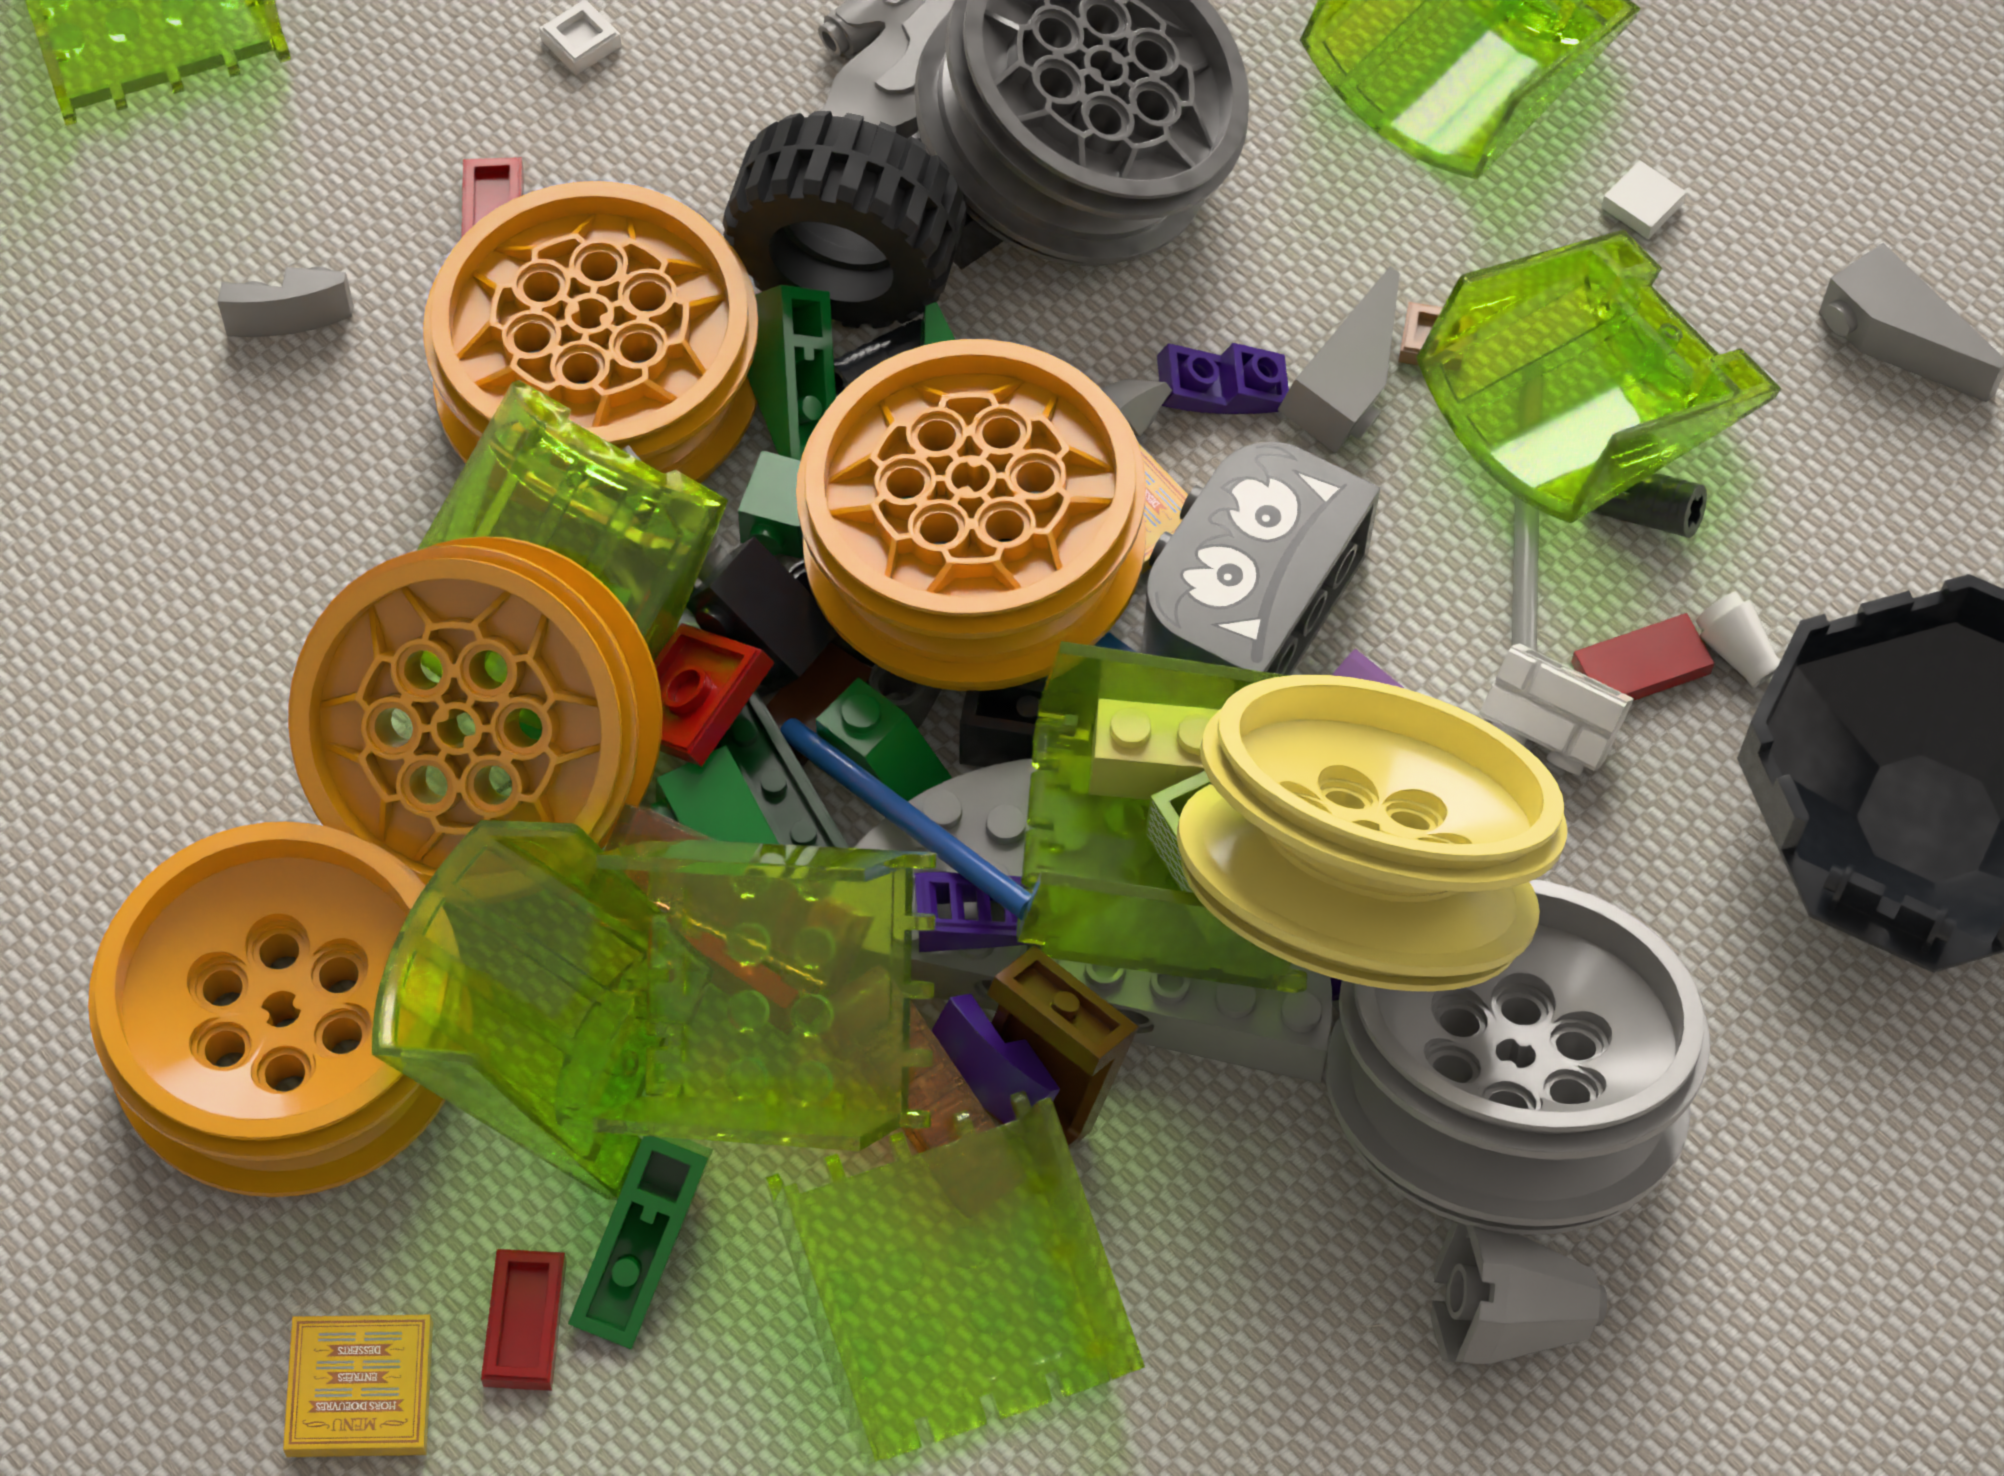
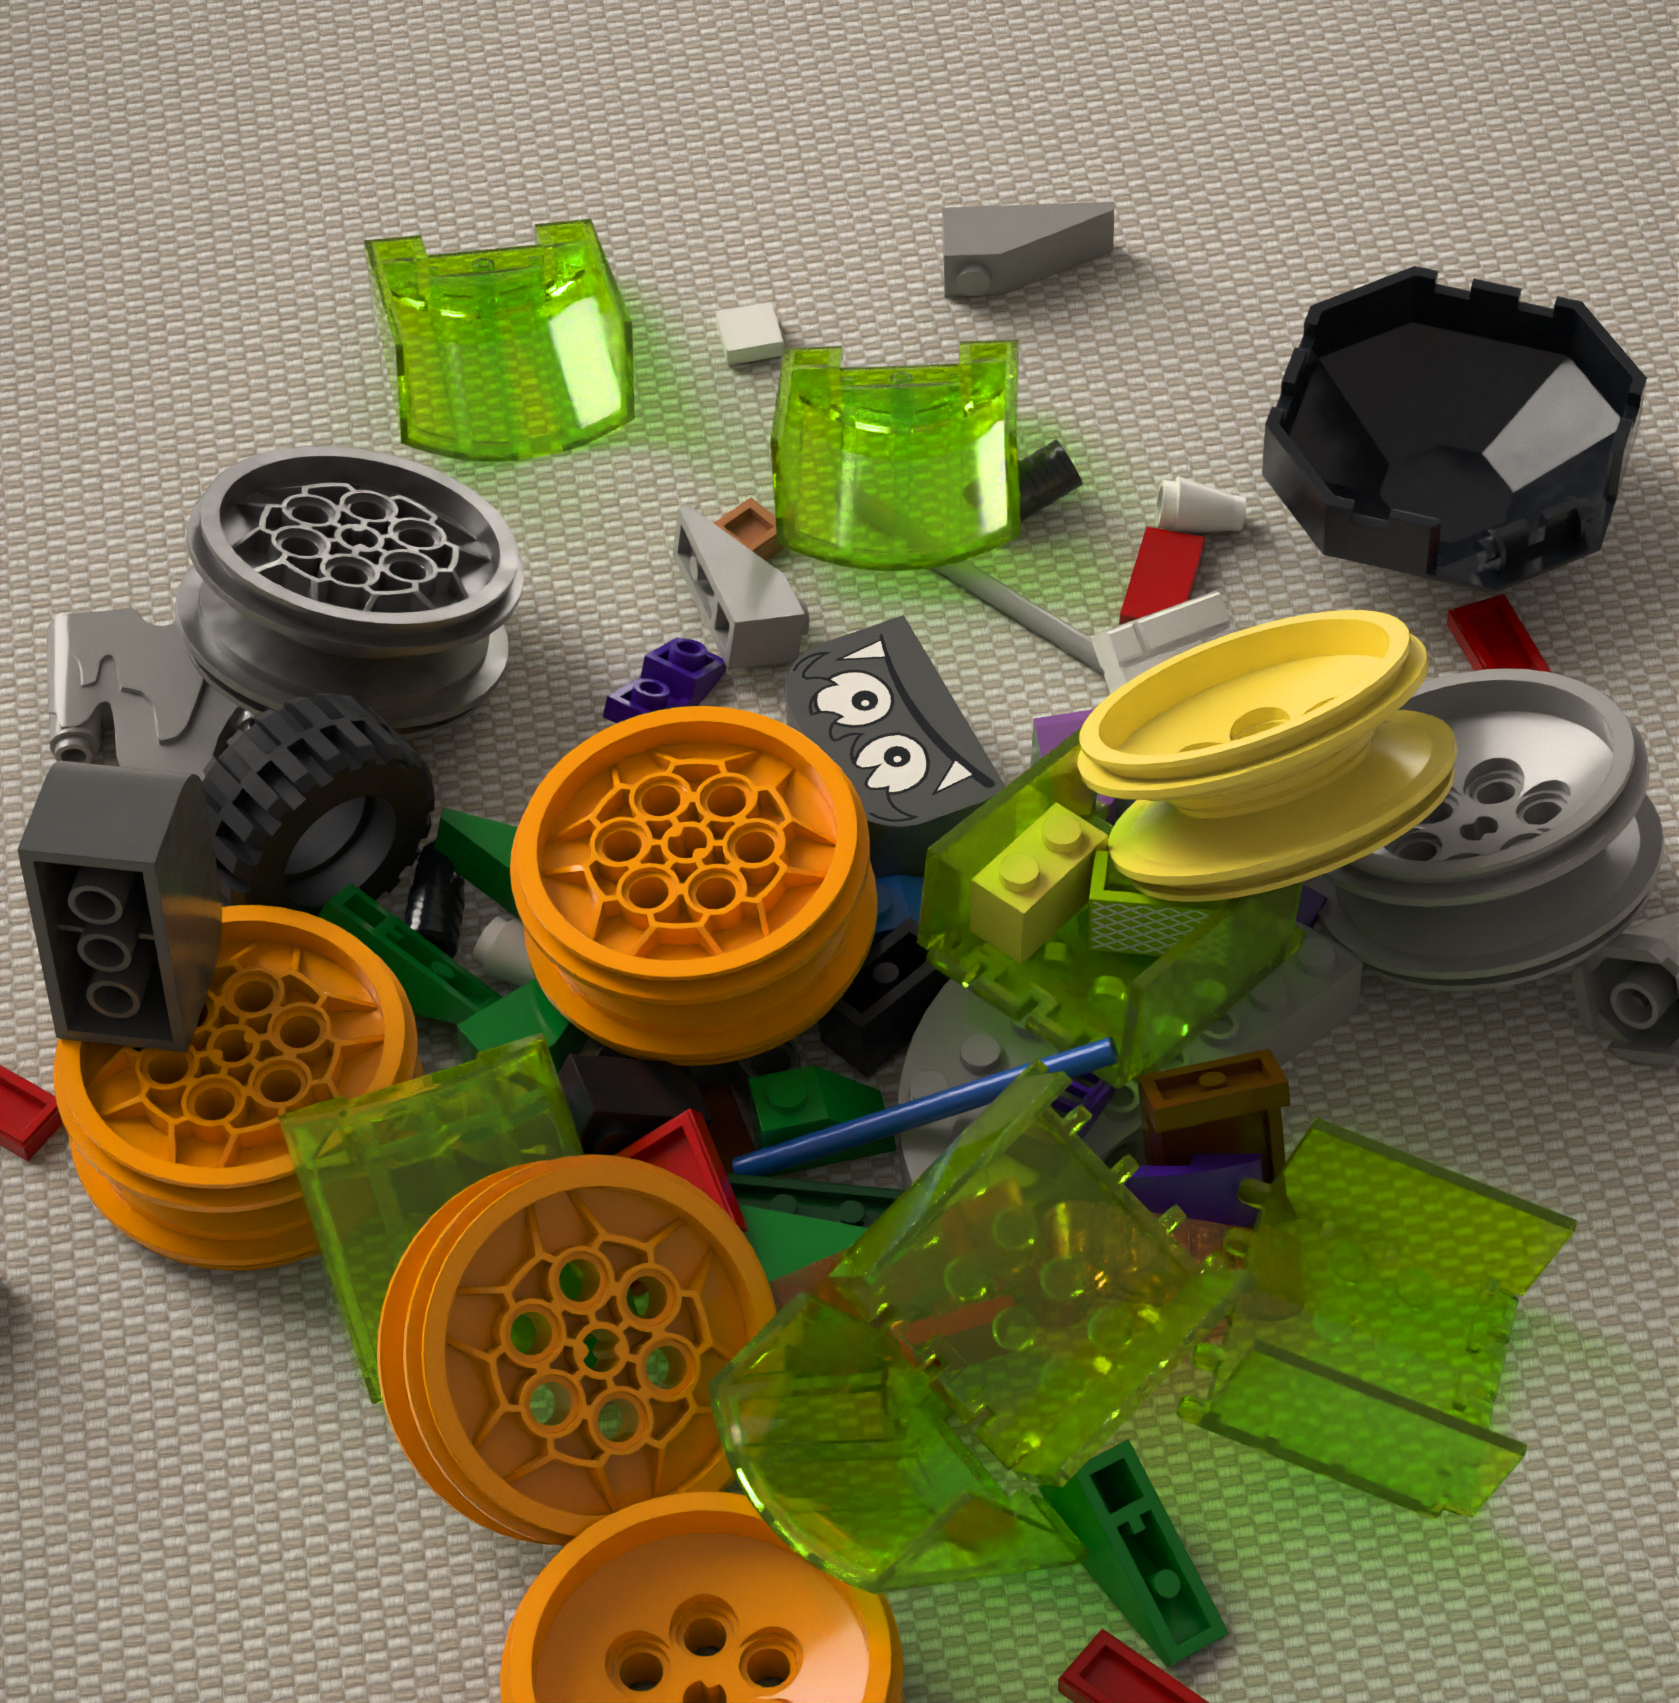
camera: 50 degrees left, 10 degrees down
(597, 142) = (123, 902): none -> dark grey brick
(1790, 970) = (1494, 636): none -> red tile

